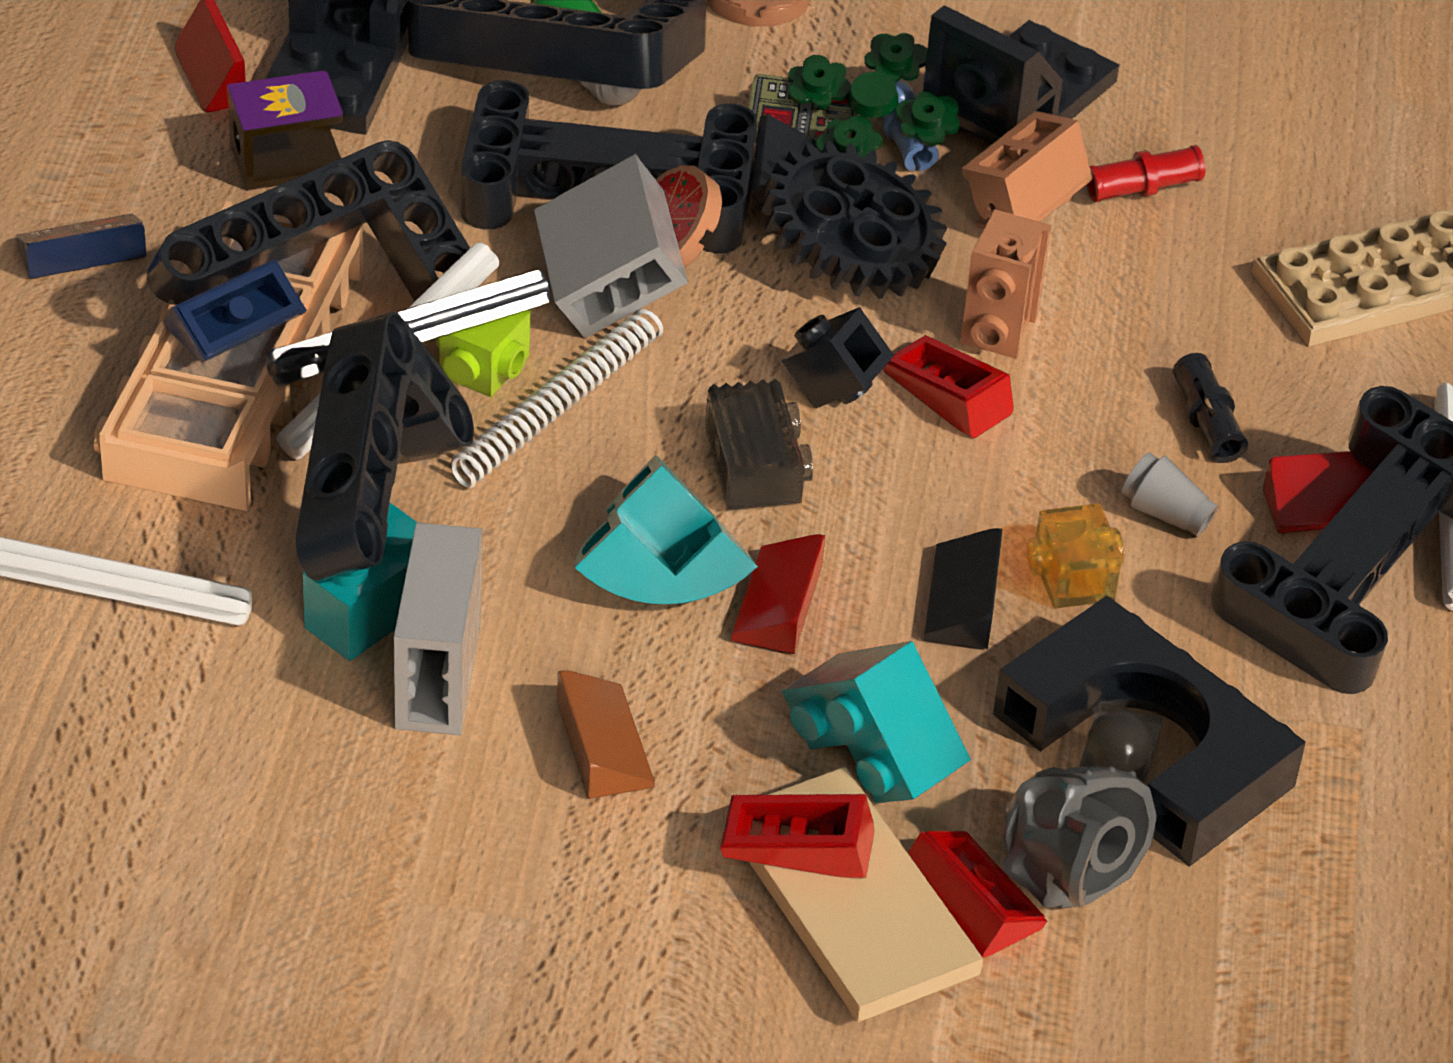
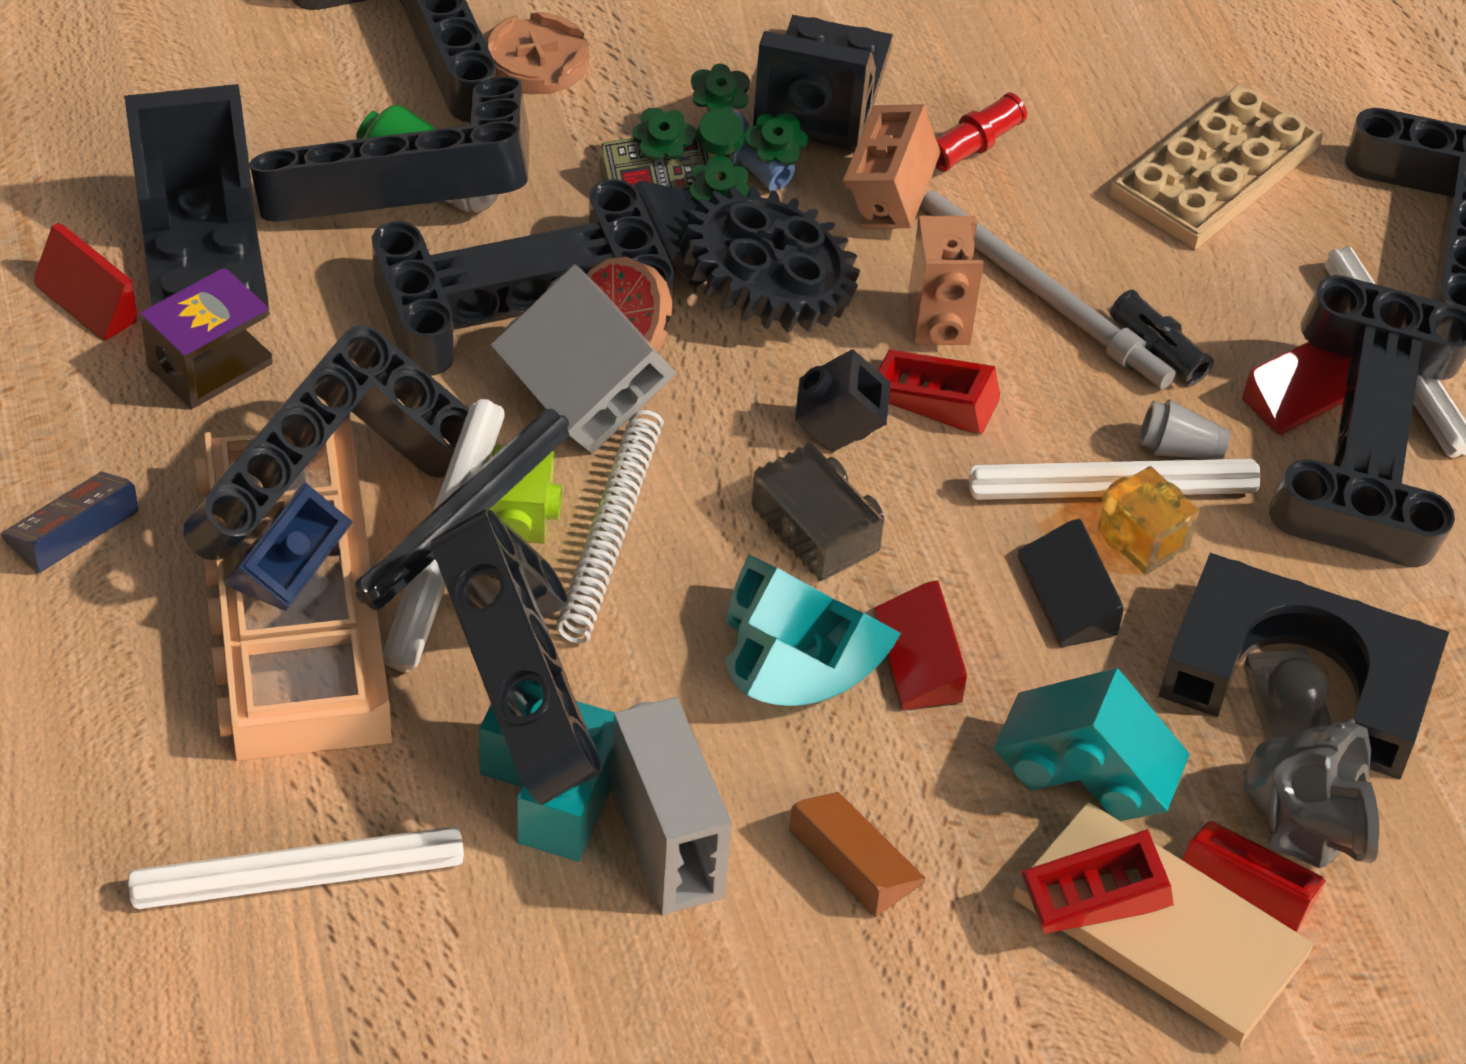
camera: 25 degrees left, 5 degrees up
(1027, 499) = (1094, 478): none -> white axle
(1163, 399) = (1121, 345): none -> light grey bar

